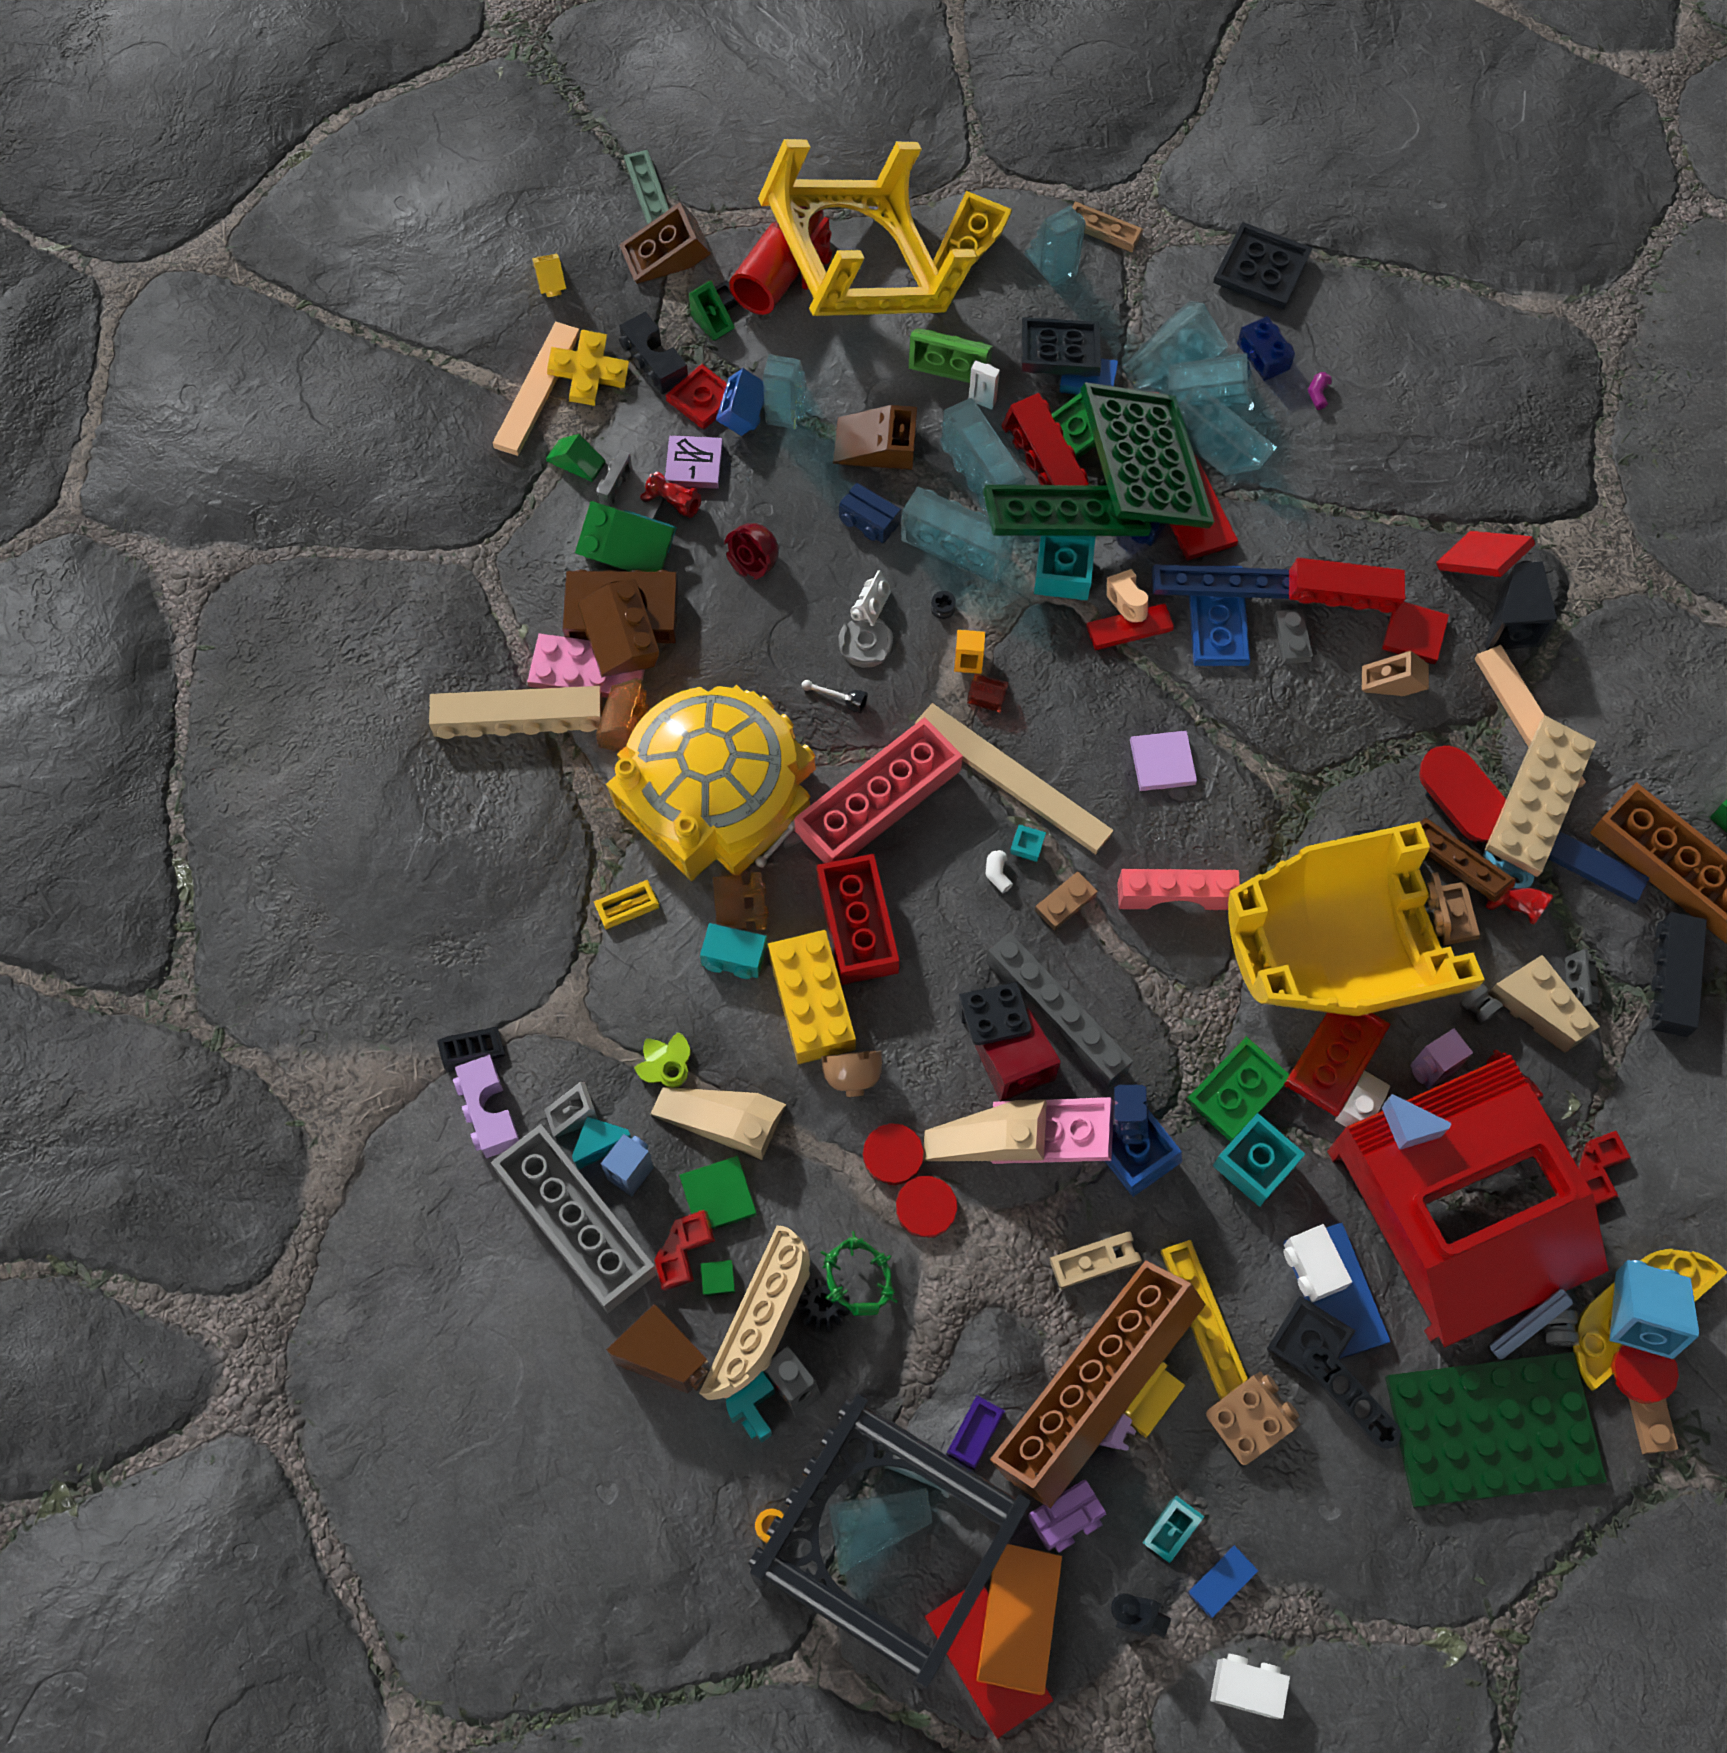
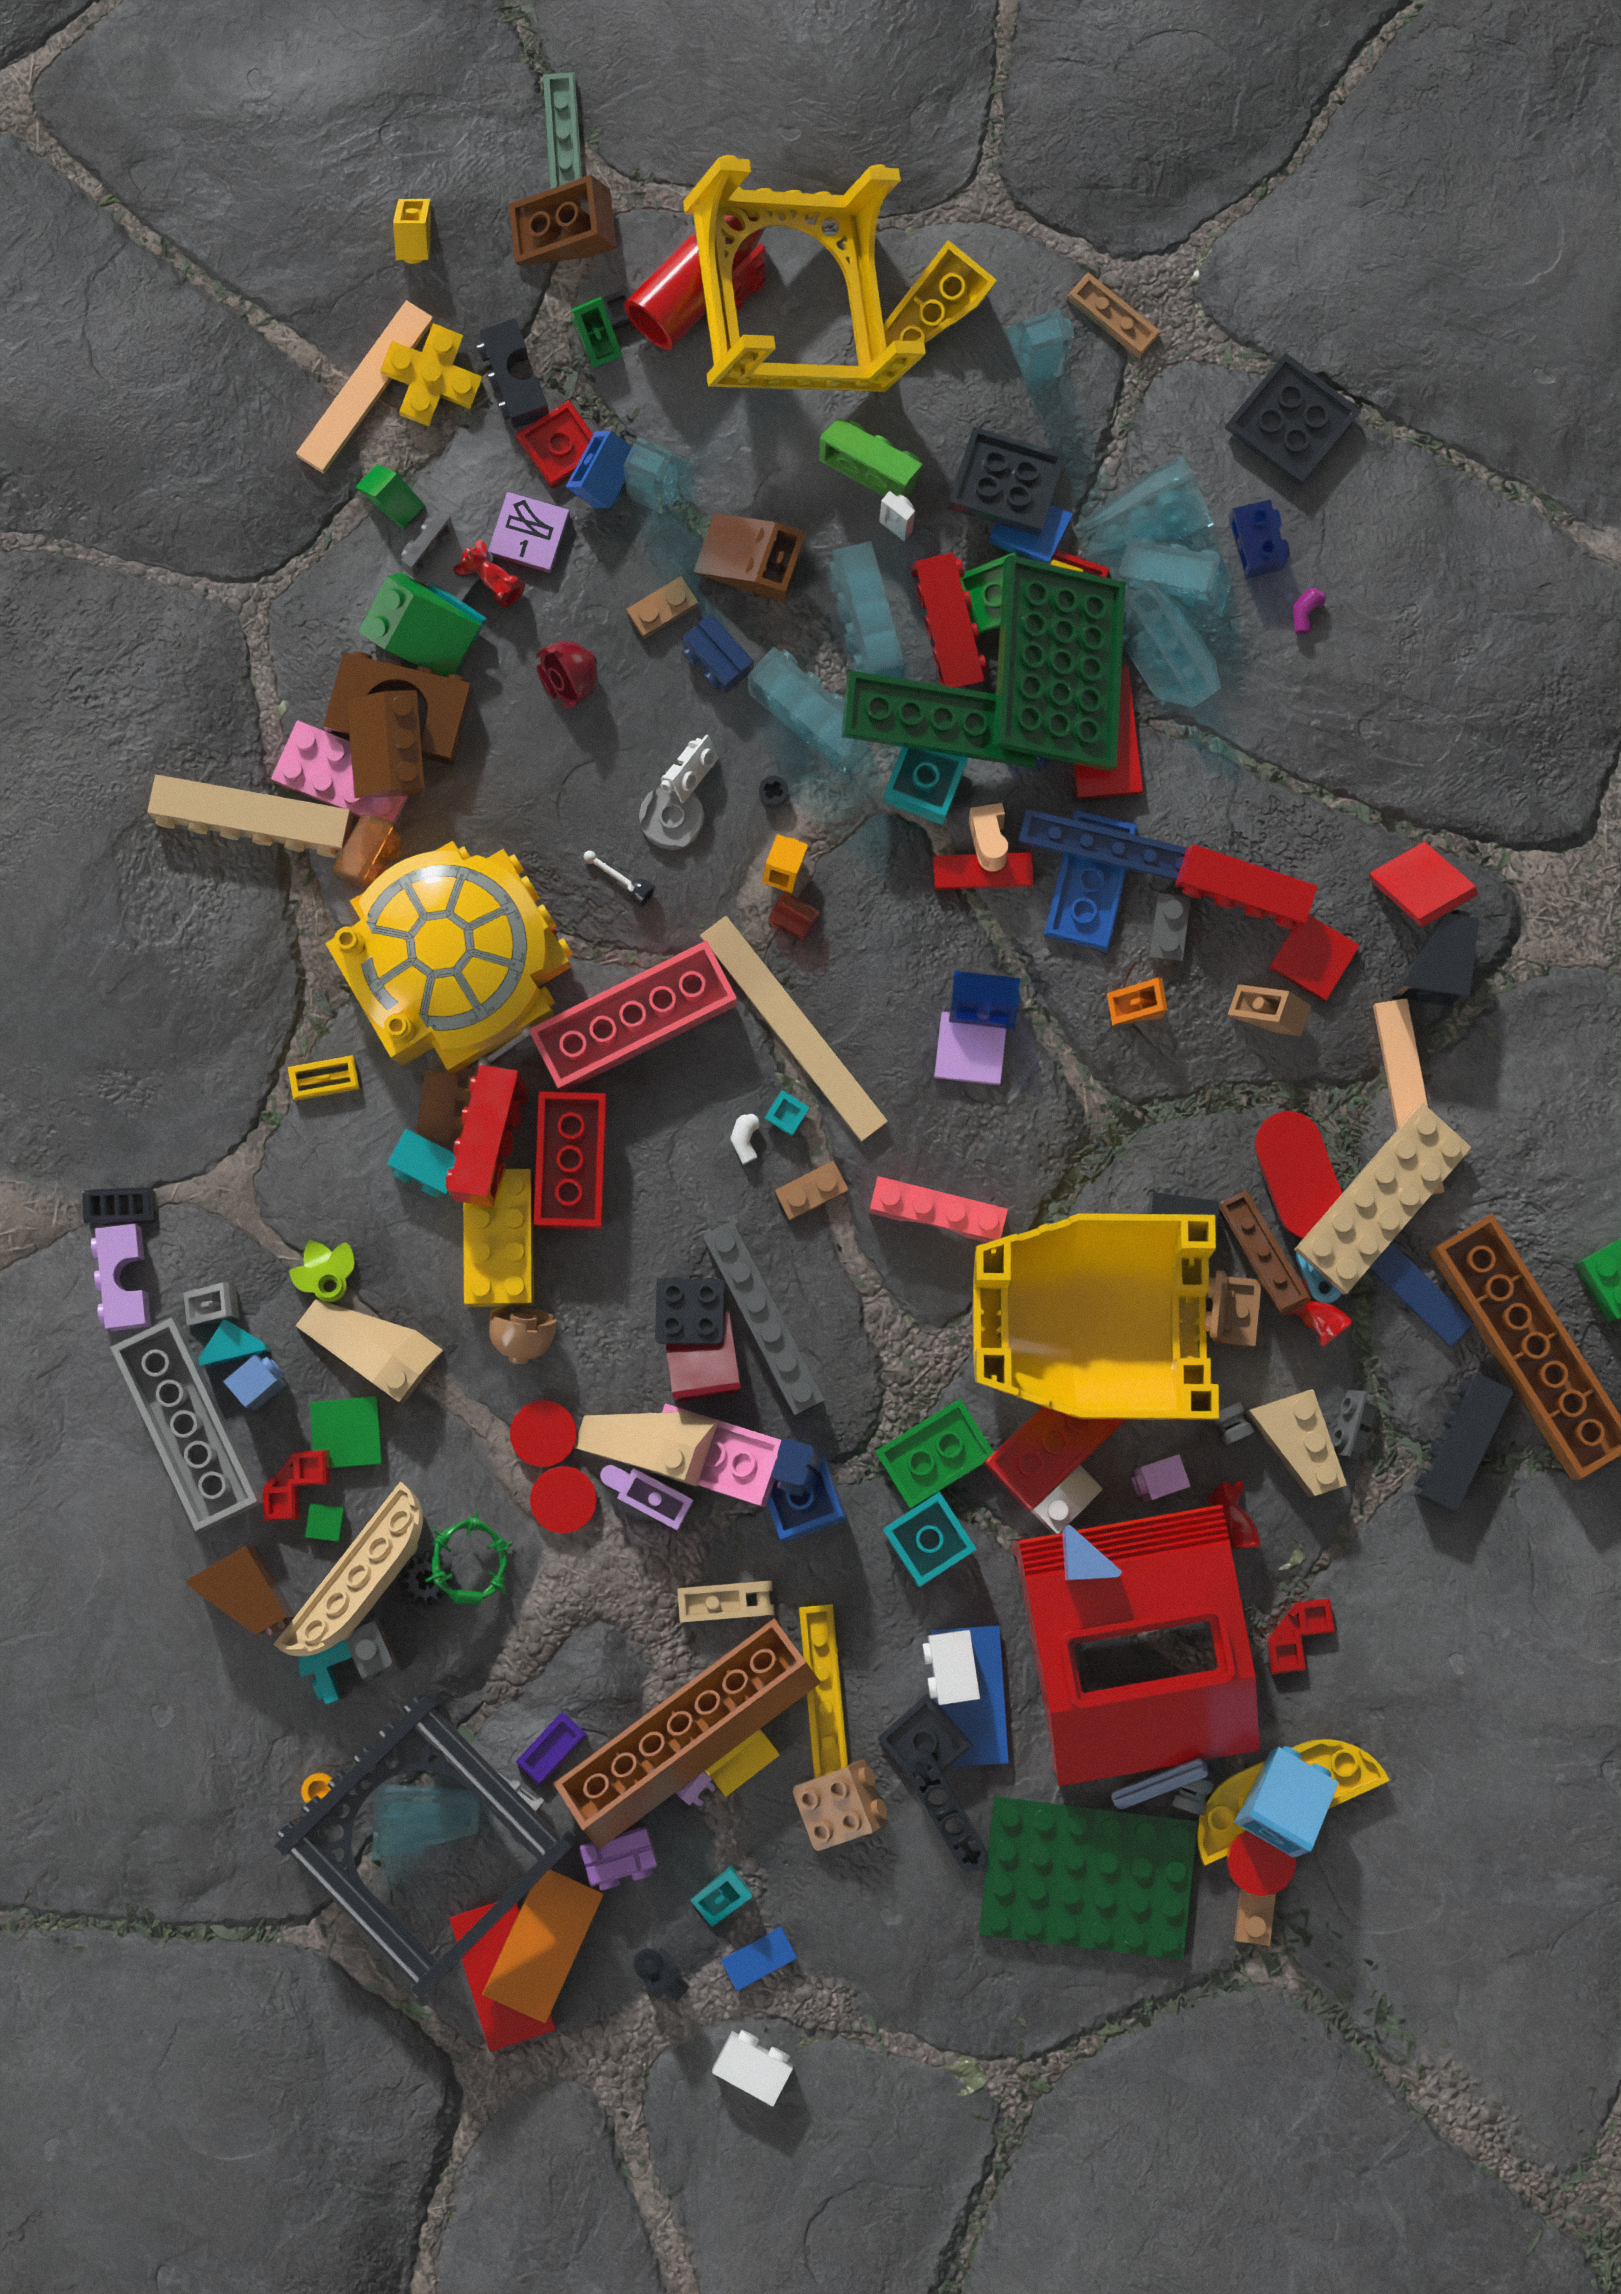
camera: 10 degrees right, 15 degrees up
(782, 906) = (486, 1135): none -> red wedge
(815, 492) = (662, 607): none -> medium nougat plate
(1002, 1181) = (648, 1495): none -> lavender brick
(1164, 717) = (984, 1000): none -> clear blue brick
(1290, 693) = (1138, 1002): none -> orange slope

